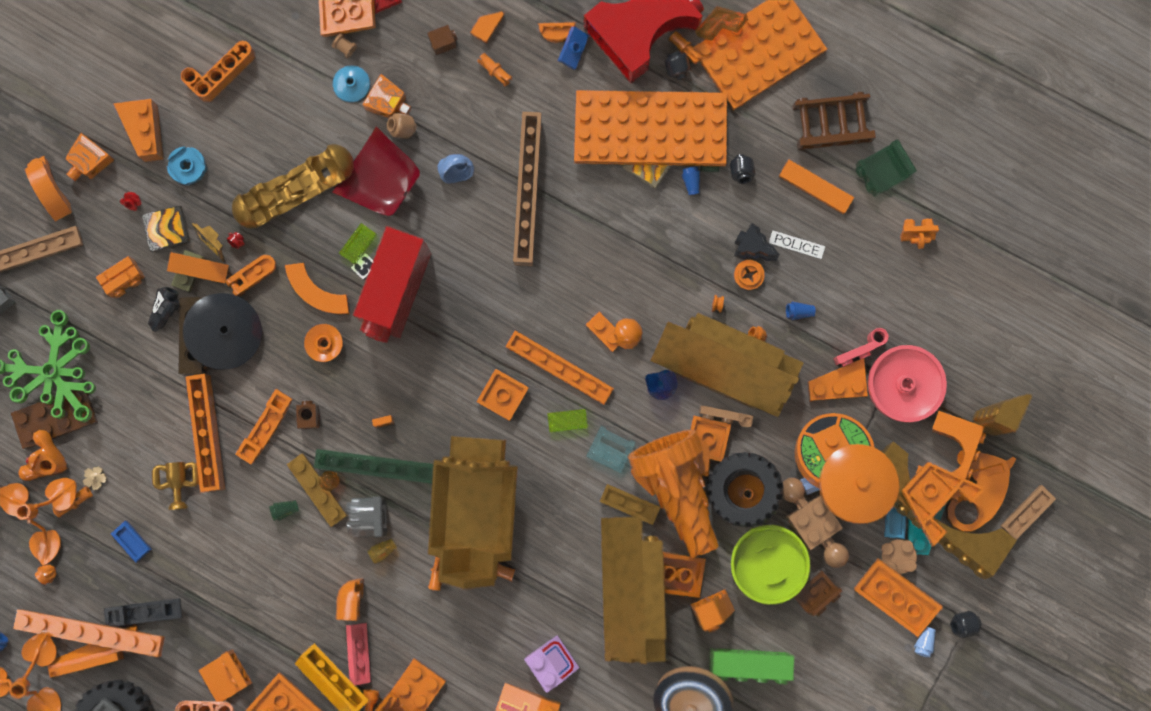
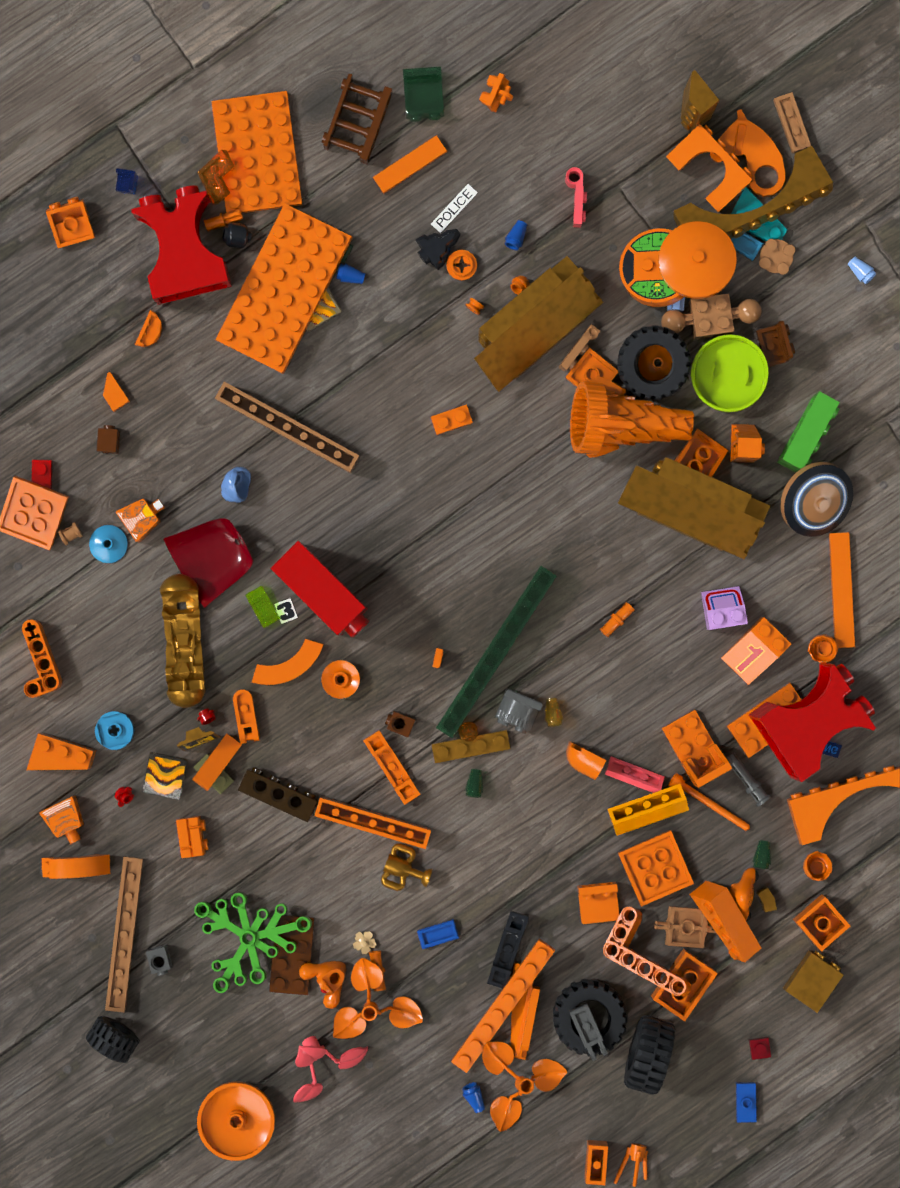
camera: 65 degrees left, 5 degrees up
(46, 574) = (431, 1022): orange plate -> none
(163, 307) = (239, 809): black rock -> none
(205, 339) = (287, 782): black dish -> none
(401, 126) = (173, 515): medium nougat head -> none
(434, 584) = (594, 670): orange axle -> none
(472, 511) = (559, 613): pearl gold panel -> none
(495, 69) = (159, 405): orange pin -> none
(502, 394) = (464, 539): orange plate -> none
(559, 367) = (464, 477): orange tile -> none
(567, 420) = (515, 492): clear neon green tile -> none
(573, 47) = (173, 323): blue plate -> none
(607, 455) = (562, 472): clear light blue plate -> none
(628, 333) = (463, 400): orange hair -> none
(629, 504) = (616, 472): pearl gold plate -> none
(661, 384) = (524, 392): clear blue hair -> none
(742, 169) = (362, 223): black head -> none
(840, 383) = (599, 231): orange wing -> none
(898, 597) = (811, 275): orange plate -> none
(907, 383) = (628, 172): coral dish -> none
(930, 491) = (734, 200): orange wing -> none
(965, 624) = (863, 227): black head -> none

